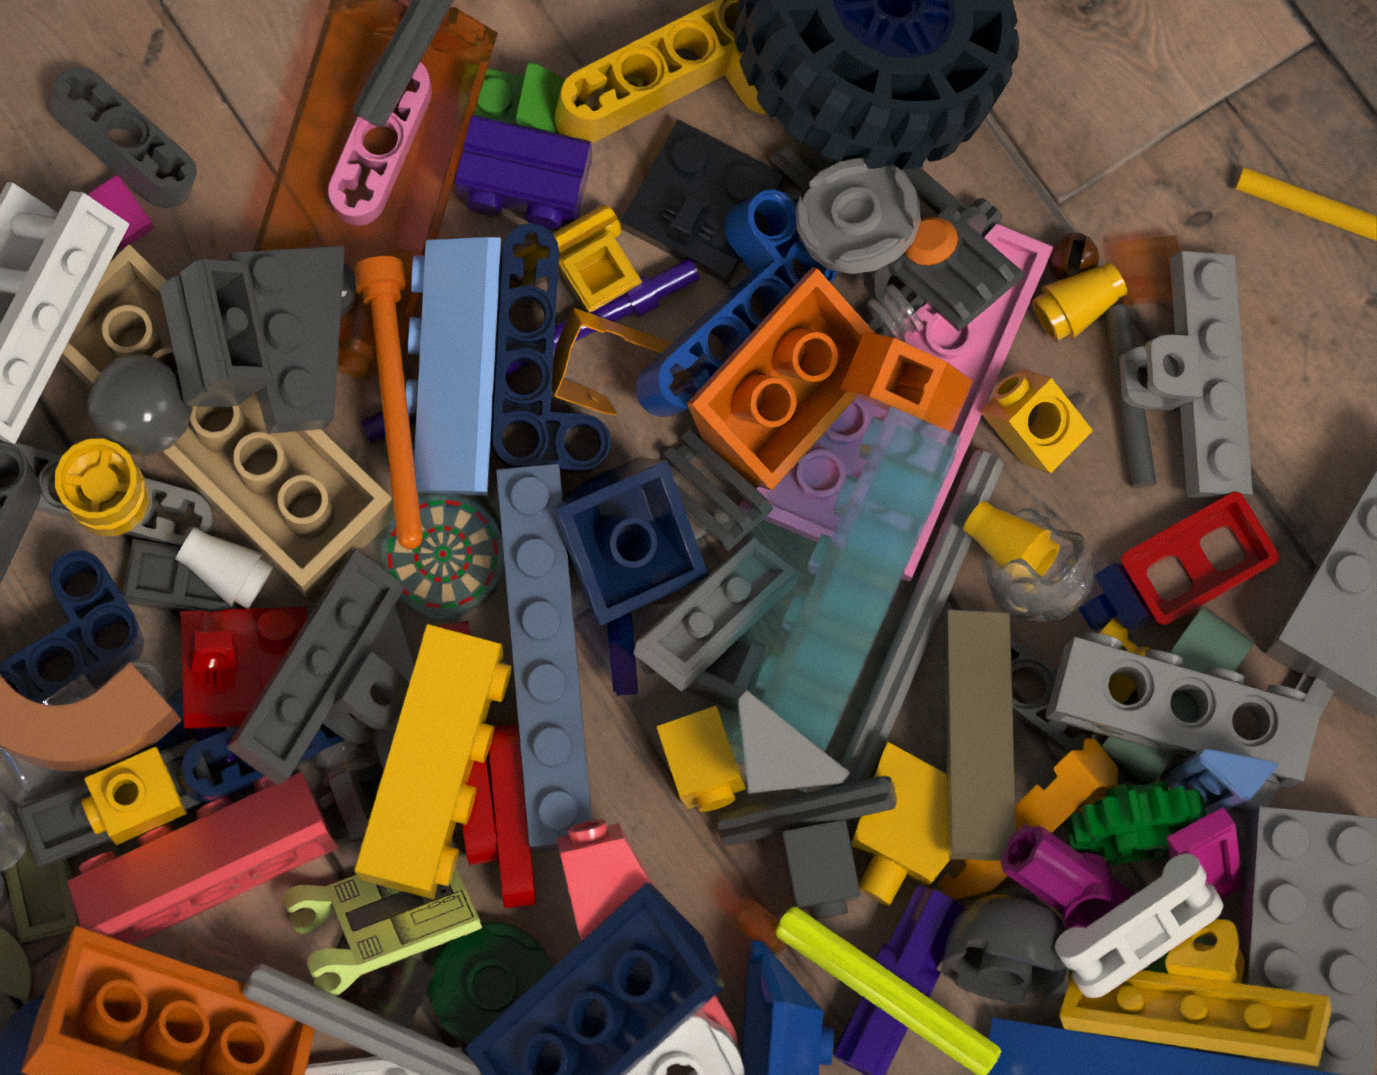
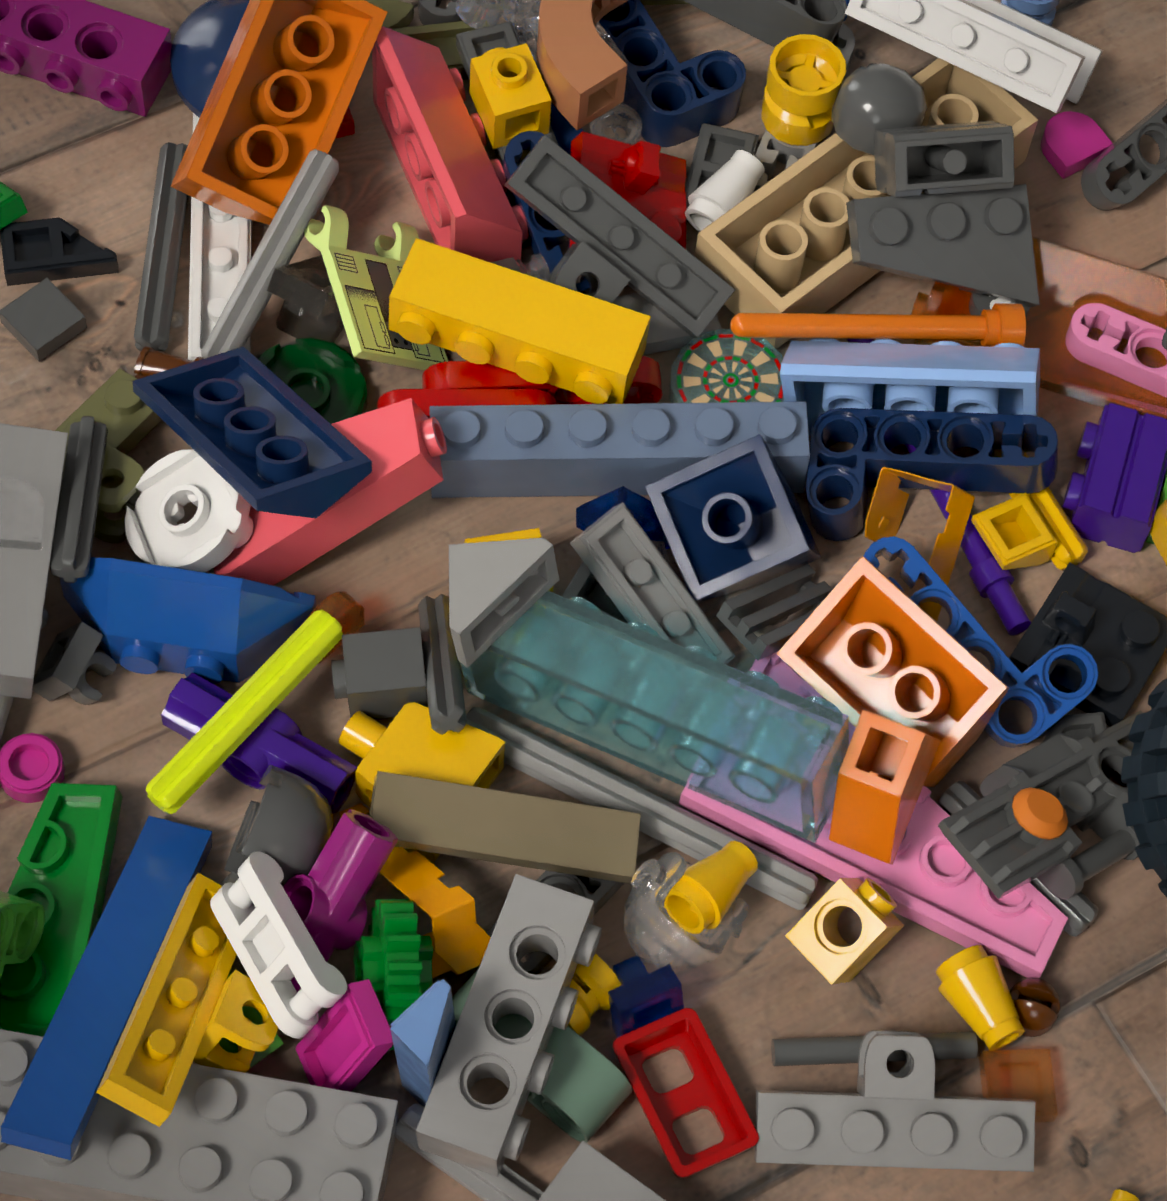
camera: 90 degrees right, 15 degrees down
(858, 216) = (1067, 746): light grey tile -> none
(894, 314) = (961, 787): clear bush -> none

